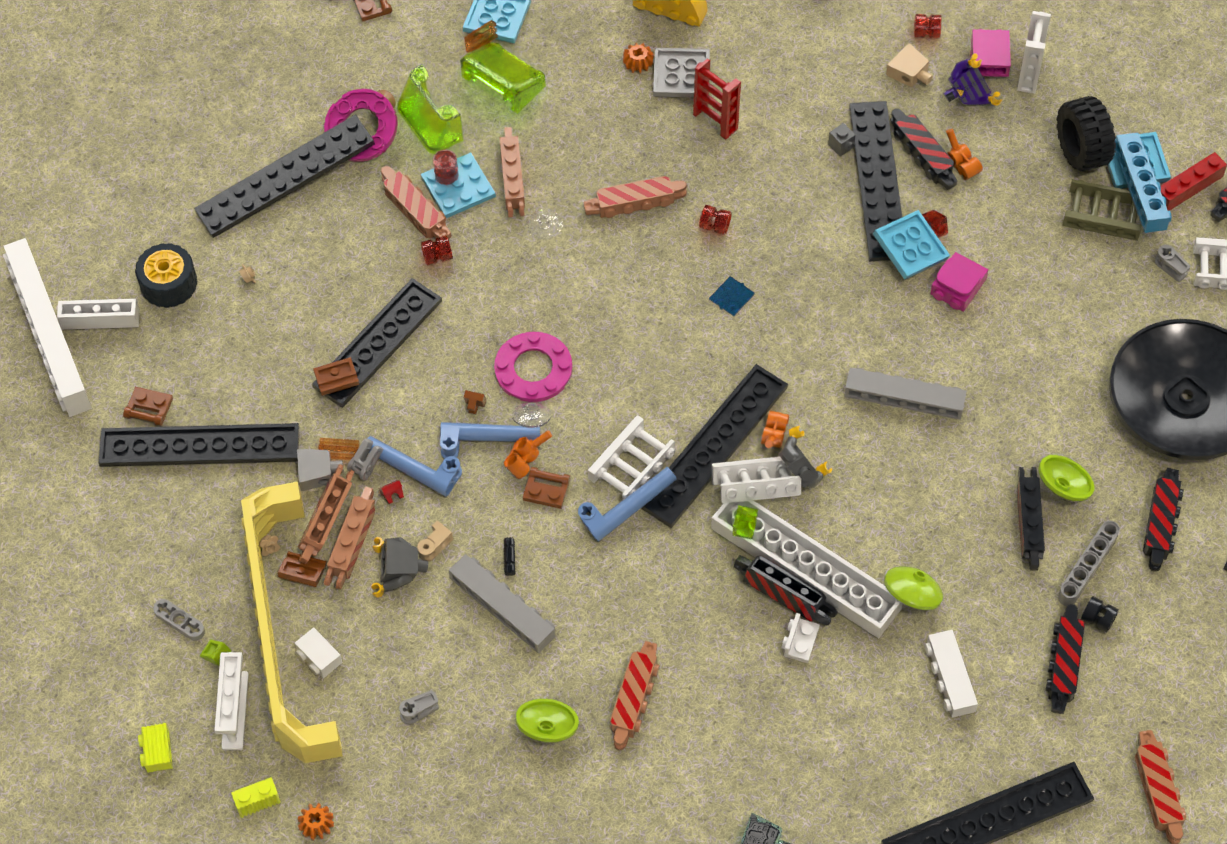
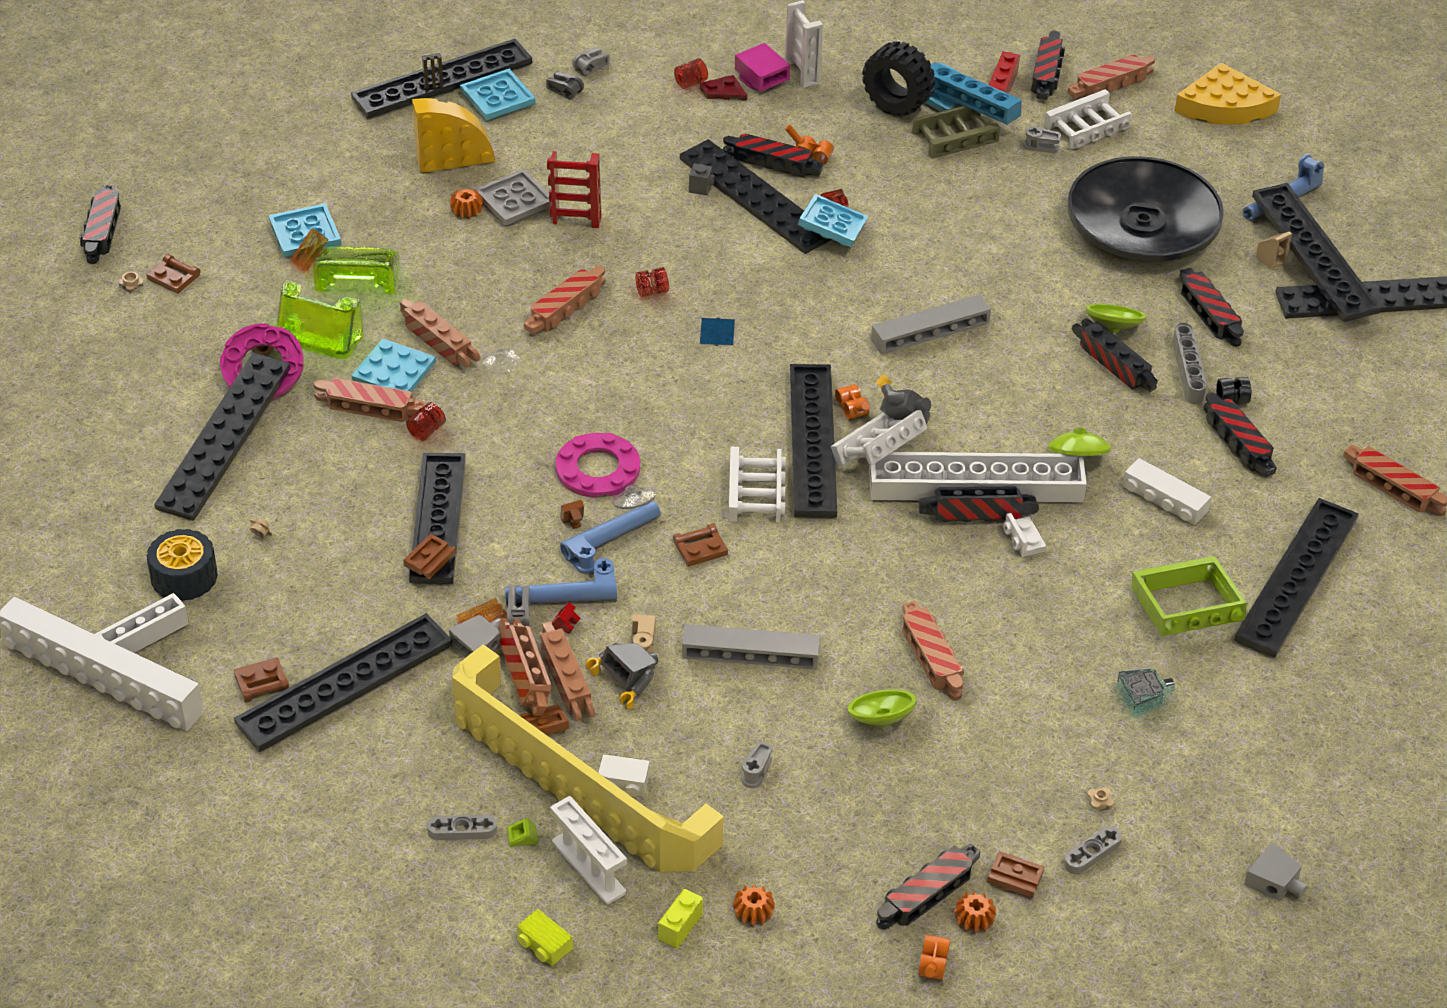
camera: 40 degrees left, 15 degrees down
(445, 167) = (377, 352): clear red wheel -> none
(509, 556) = (720, 611): black axle -> none
(524, 452) = (658, 526): orange beam -> none
(601, 525) = (778, 542): medium blue axle -> none
(745, 522) = (903, 466): clear neon green panel -> none
(886, 755) = (1182, 574): none -> lime window
(909, 67) = (705, 107): tan torso -> none
(944, 53) = (723, 88): none -> dark red wing
(958, 281) = (894, 229): dark pink brick -> none
(970, 85) = (768, 92): torso -> none

